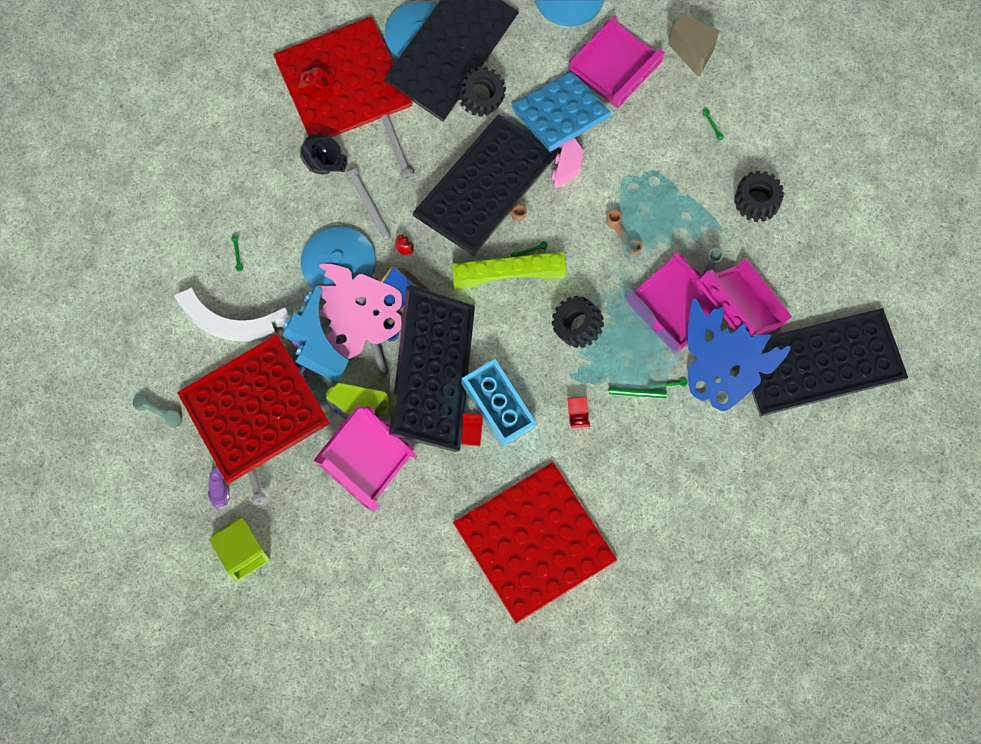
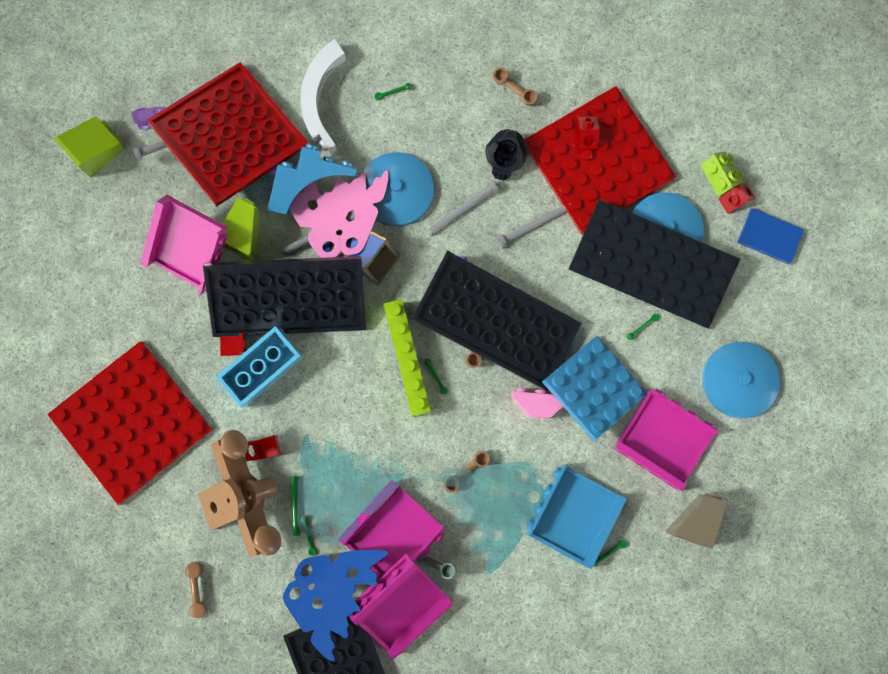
camera: 75 degrees right, 10 degrees up
(171, 417) = (215, 62): sand green bar -> none
(269, 131) = (501, 77): none -> medium nougat bar
(403, 245) = (421, 249): red plate -> none
(489, 80) = (615, 313): black tyre -> none
(501, 55) = (630, 336): none -> green hinge
(568, 312) = (353, 421): black tyre -> none
(625, 435) = (226, 503): none -> medium nougat piece
(677, 145) = (575, 516): none -> dark azure panel
(727, 494) = (197, 608): none -> medium nougat bar
(765, 184) = (544, 617): black tyre -> none

